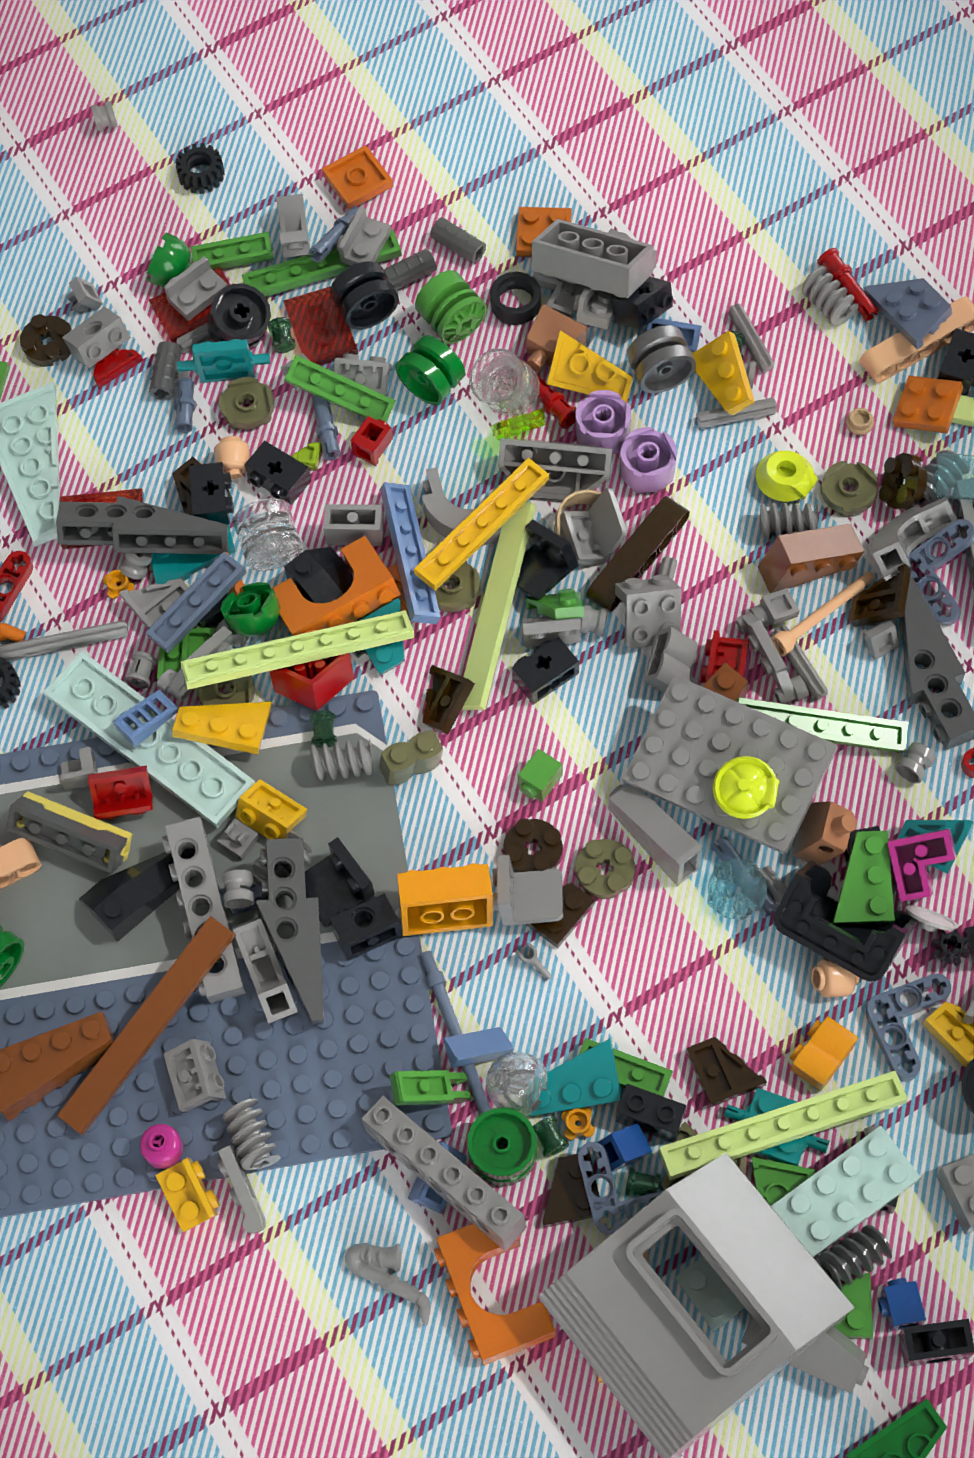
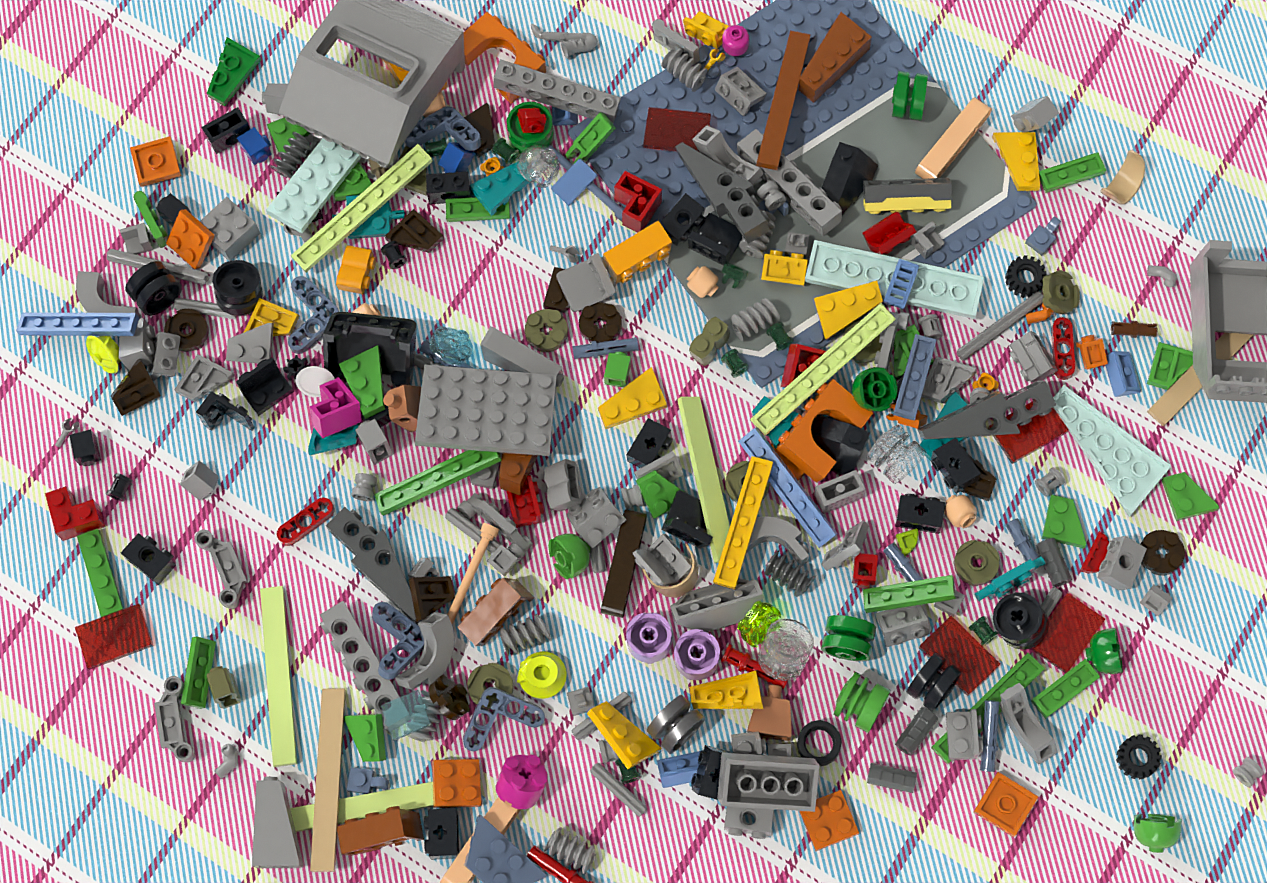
camera: 155 degrees right, 5 degrees up
(47, 583) = (1032, 357): none -> light grey brick
(116, 450) = (1055, 476): none -> light grey bush
(129, 409) = (1063, 522): none -> bright green wing
(194, 288) = (1070, 637): light grey bracket -> none
(203, 1139) = (713, 58): none -> yellow hand
(224, 98) = (1157, 831): none -> bright green cylinder
(307, 1059) = (671, 127): none -> clear red tile
(334, 826) = (734, 272): none -> clear green tile
(374, 458) = (849, 547): none -> light grey plate
(381, 835) = (702, 282): none -> light nougat head
(393, 725) = (734, 363): none -> clear green bush
(404, 963) = (640, 200): none -> red brick
(445, 699) = (708, 396): dark brown wing -> none
(457, 465) = (788, 574): none -> dark grey piece
(498, 1138) = (531, 120): none -> red bracket
(526, 732) = (633, 401): none -> yellow wing
(534, 809) = (581, 350): none -> sand blue pin
(697, 581) = (570, 554): none -> bright green cylinder
(745, 787) = (464, 383): neon yellow piece -> none
(753, 436) = (580, 701): none -> light grey tile
(763, 1052) = (393, 255): none -> black bush
(849, 458) = (499, 707): none -> sand blue beam
(855, 368) = (521, 781): none -> dark pink brick
(860, 421) = (503, 748): tan plate -> none
(884, 801) = (373, 441): none -> light grey brick

